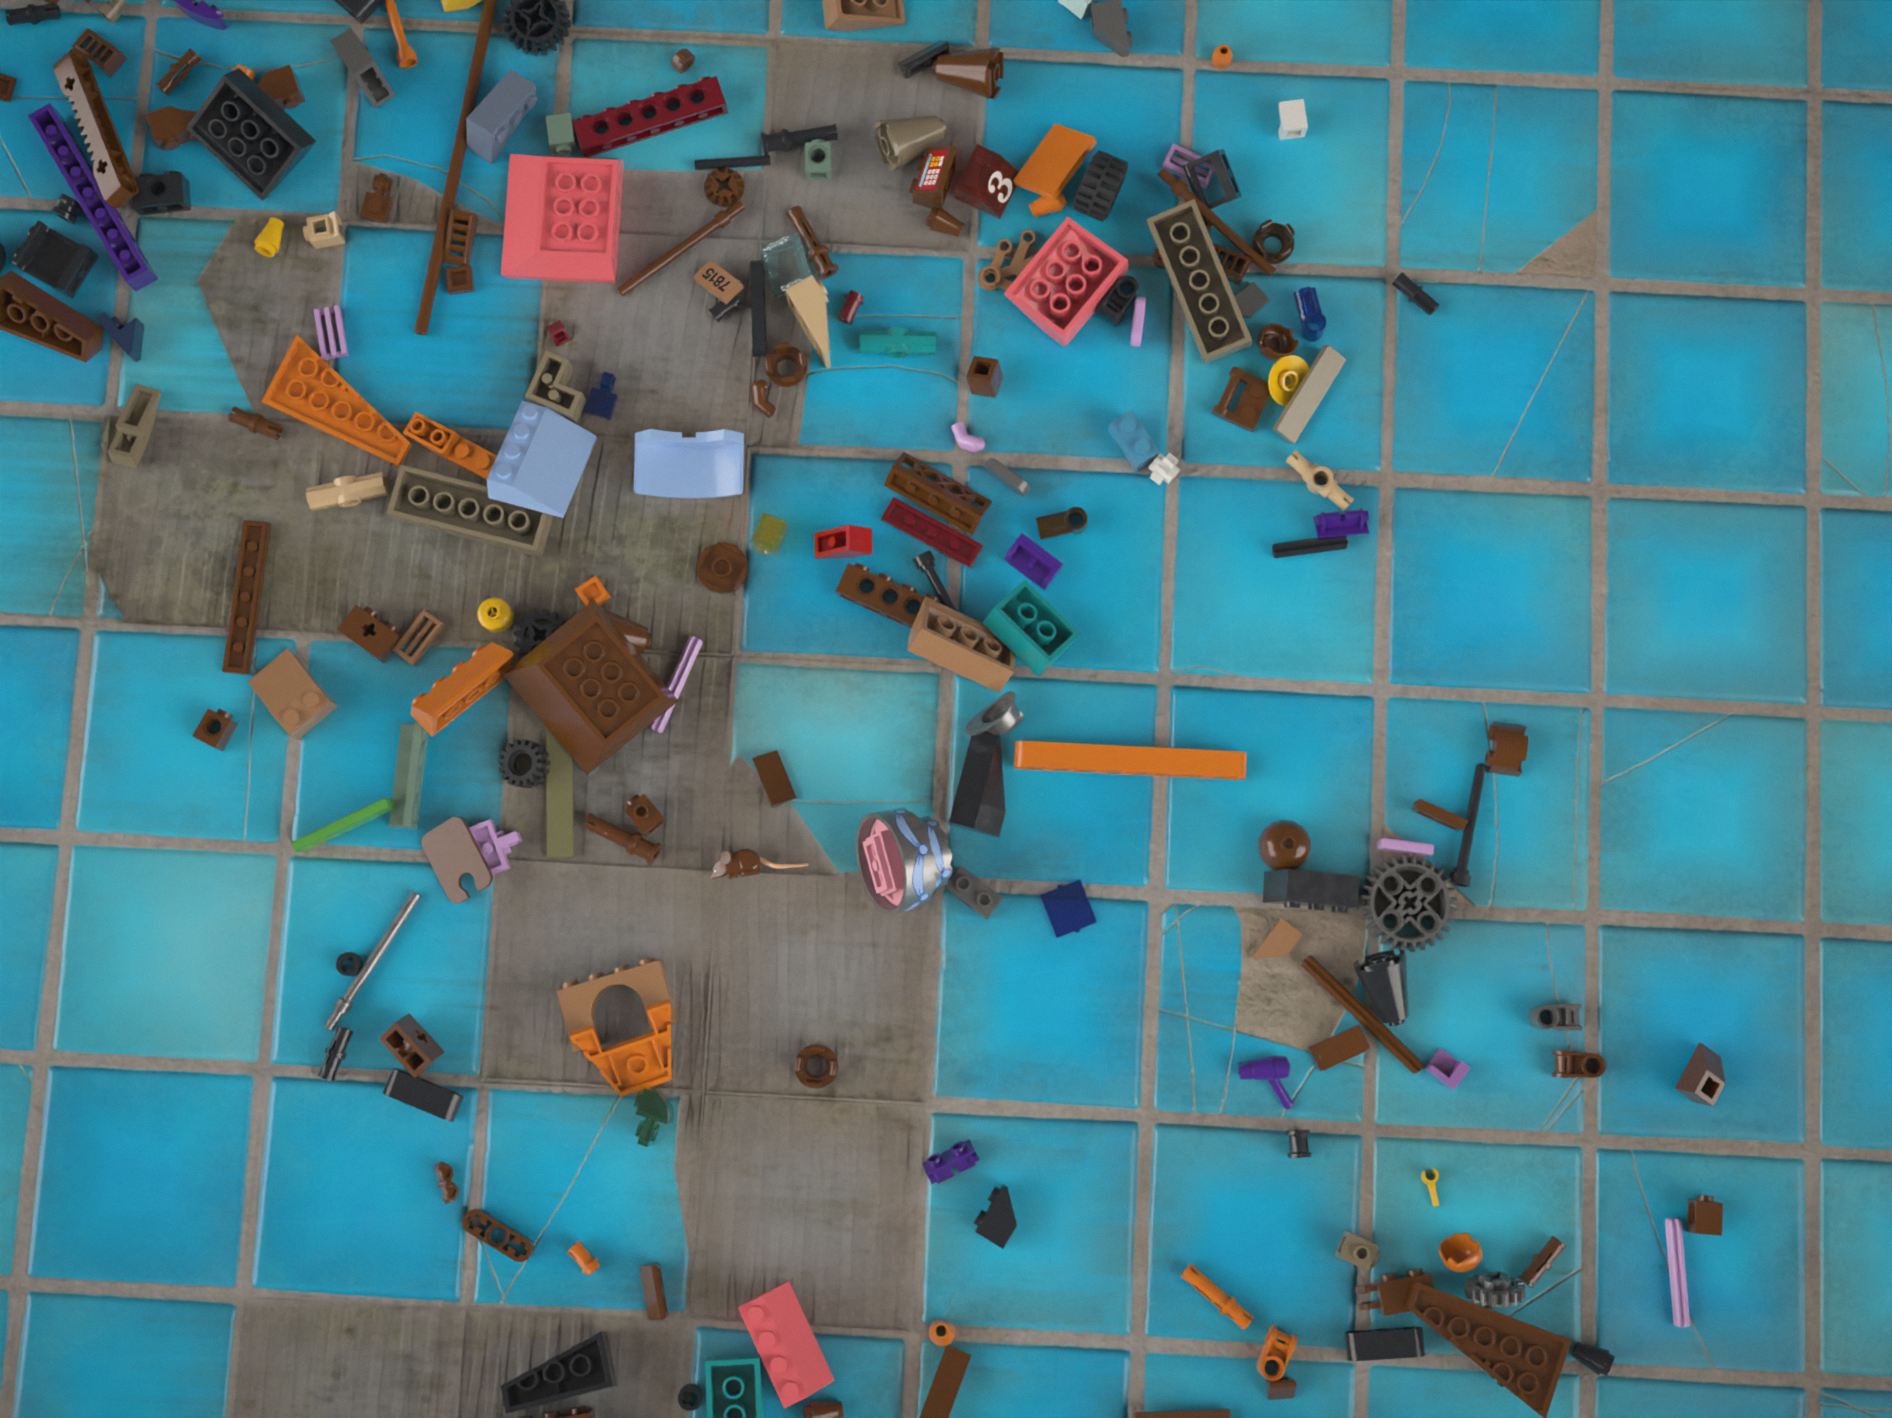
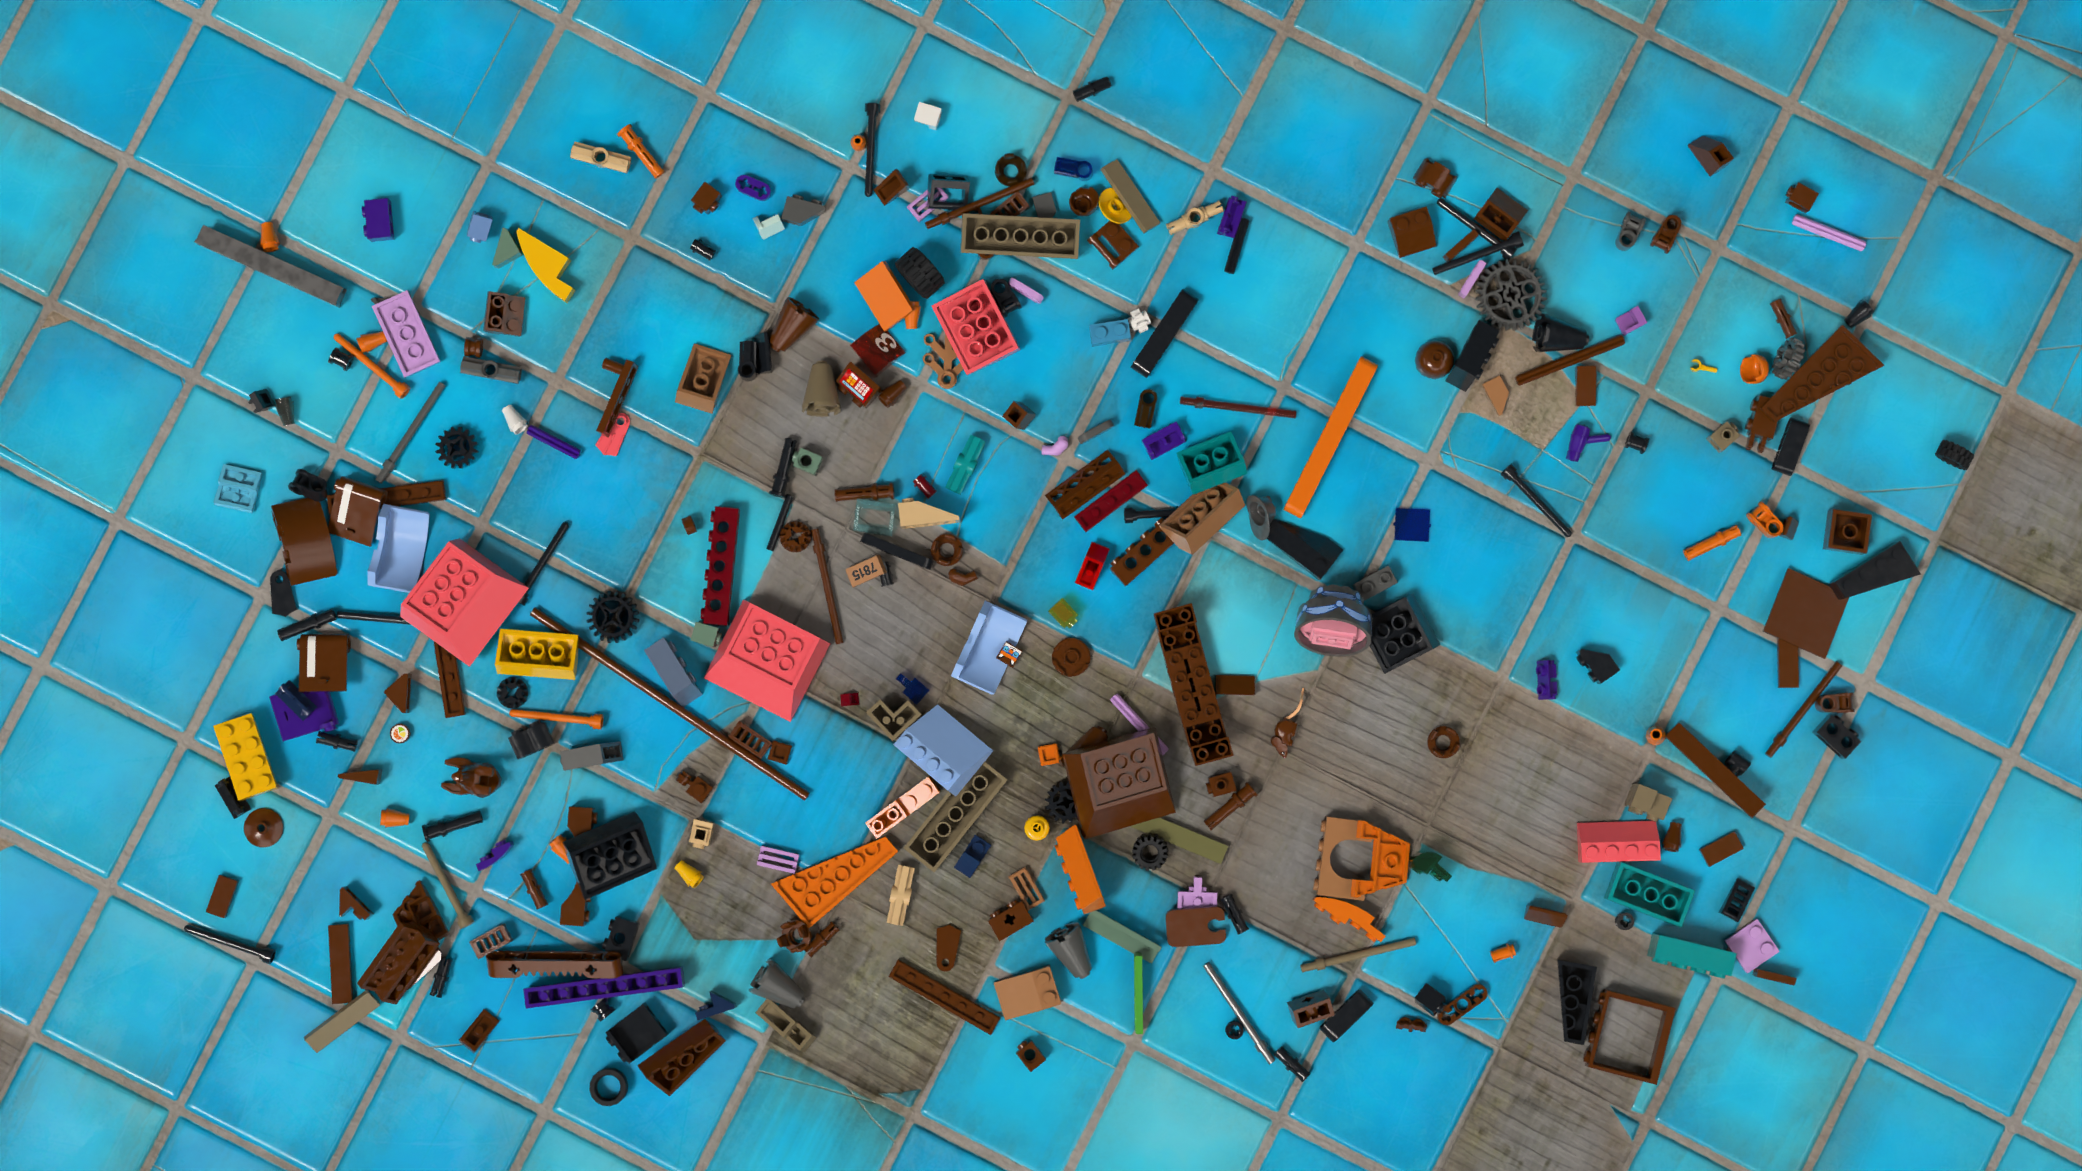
camera: 70 degrees left, 5 degrees up
(175, 394) = (776, 986): none -> dark grey cone
(251, 385) = (787, 939): none -> reddish brown piece
(309, 574) = (947, 946): none -> reddish brown piece
(363, 719) = (1070, 949): none -> dark grey cone
(431, 556) = (972, 856): none -> dark blue slope
(475, 1035) = (1321, 963): none -> dark tan bar
(485, 1192) = (1430, 1000): none -> black brick
(492, 901) = (1234, 914): none -> black pin
(553, 1034) = (1343, 911): none -> orange slope
(692, 492) = (1009, 654): none -> tile
(749, 723) = (1192, 685): none -> reddish brown slope
(852, 1359) = (1647, 801): none -> dark tan brick
(907, 41) = (748, 358): none -> black piece
(927, 952) = (1401, 633): none -> black slope
(1099, 586) = (1200, 402): none -> clear red bar
(1163, 506) = (1164, 333): none -> black beam
(1186, 1003) = (1511, 474): none -> black piece
(1188, 116) = (891, 187): none -> reddish brown slope
(1267, 55) = (872, 112): none -> black piece
(1427, 748) = (1412, 232): none -> reddish brown slope
(1477, 877) = (1514, 241): none -> black piece
(1501, 846) = (1500, 214): none -> reddish brown slope

